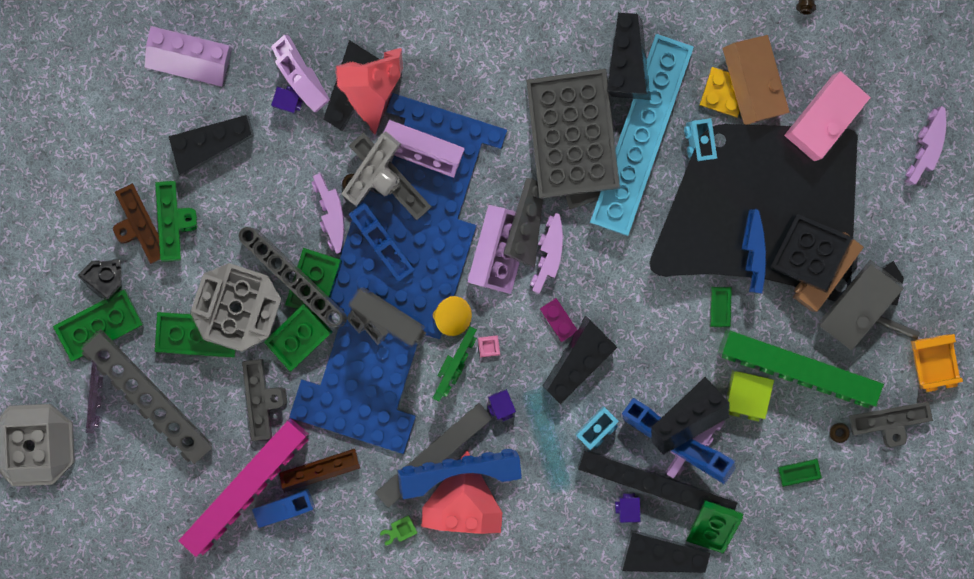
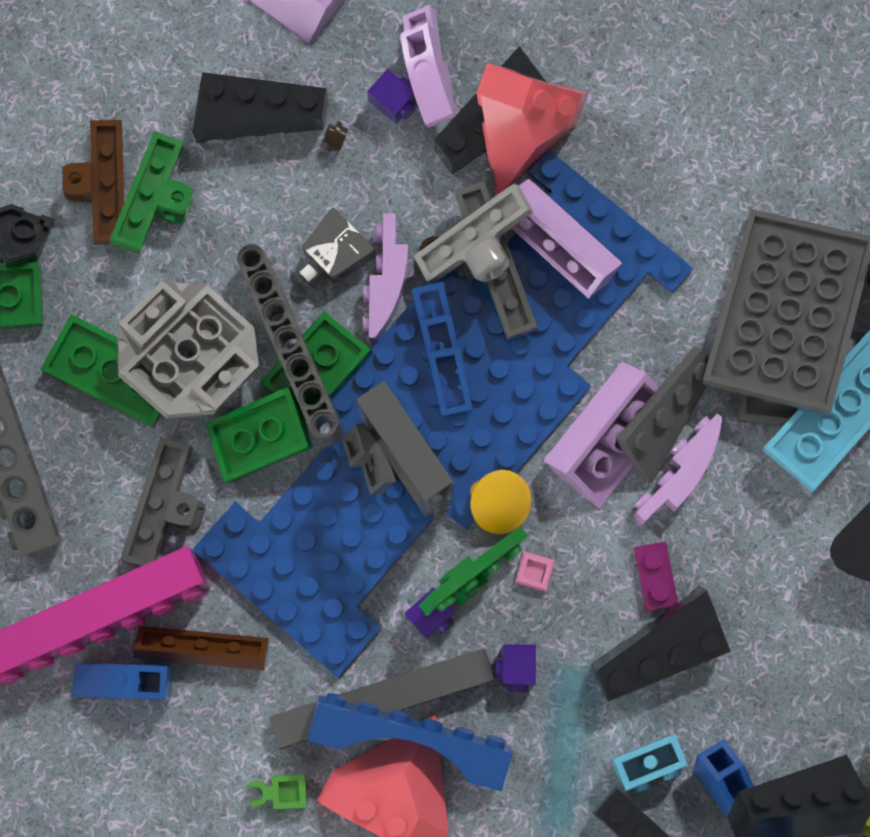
camera: 25 degrees right, 10 degrees down
(263, 139) = (335, 136): none -> dark brown plate
(293, 208) = (334, 250): none -> dark grey torso
(444, 400) = (433, 622): none -> dark purple brick

